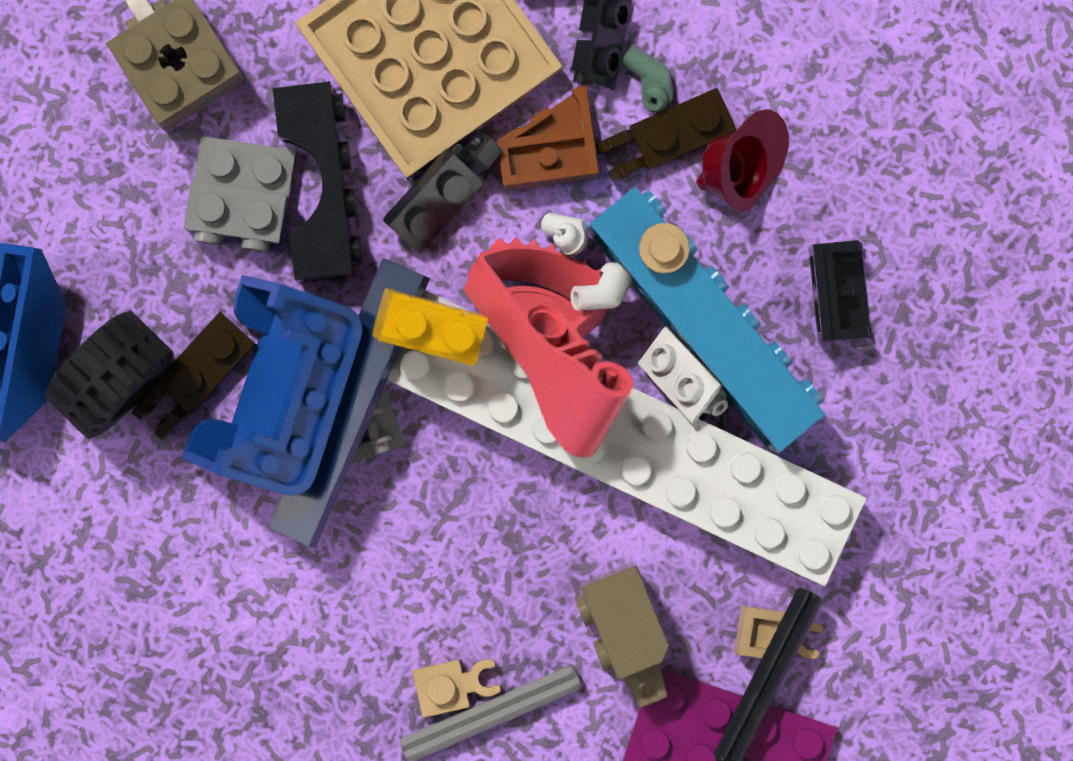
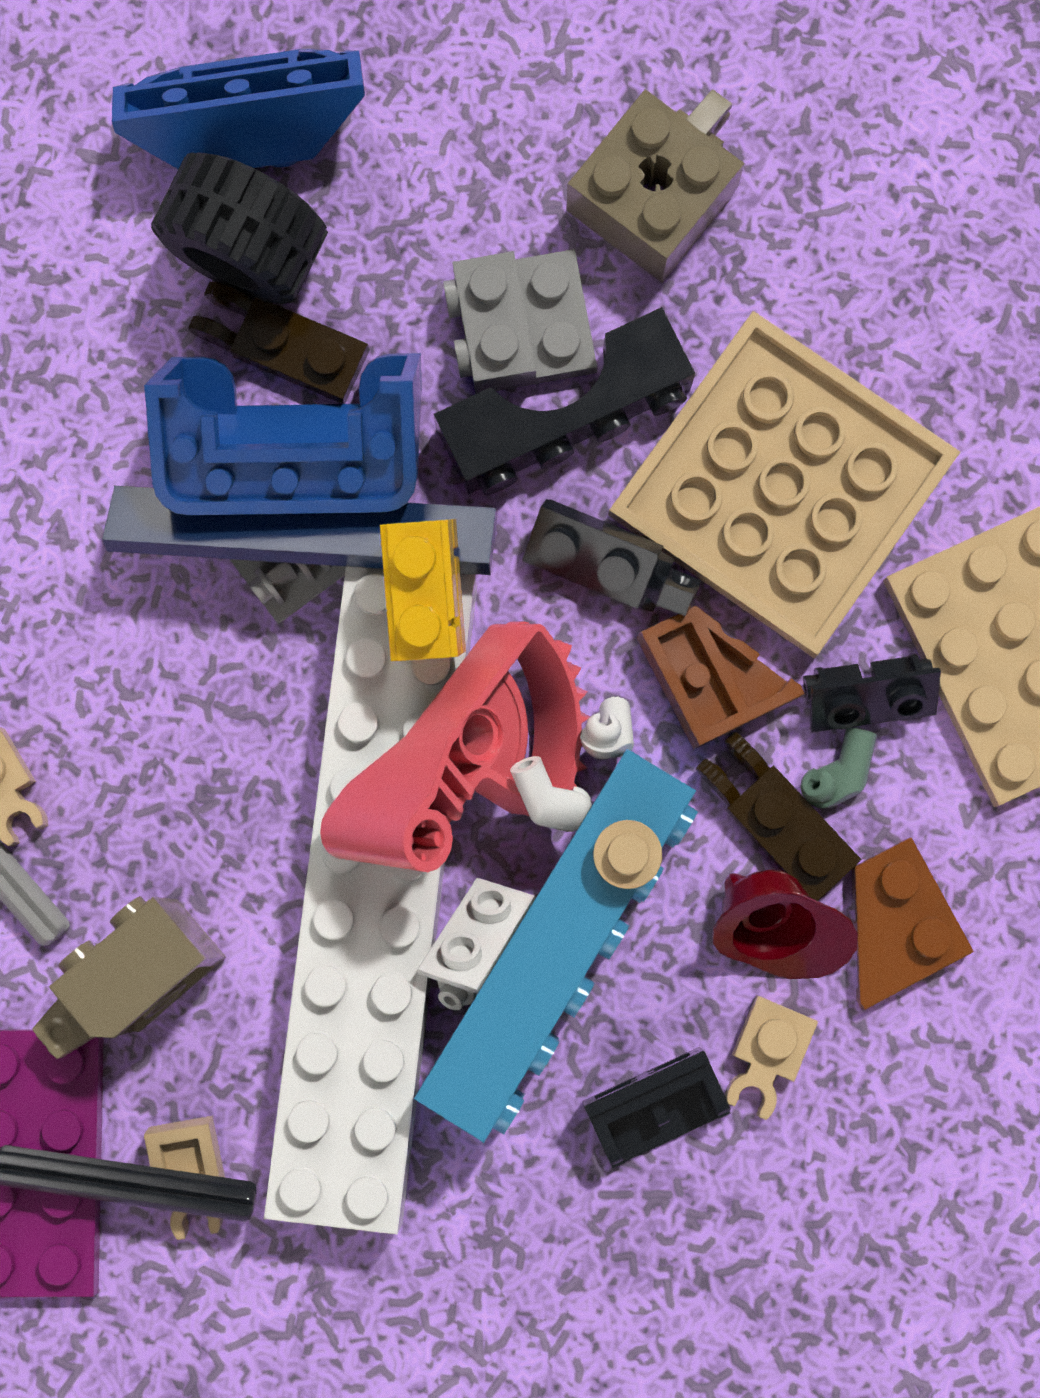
camera: 70 degrees right, 5 degrees down
(770, 75) = (901, 923): none -> dark orange wing
(824, 196) = (773, 1044): none -> tan plate

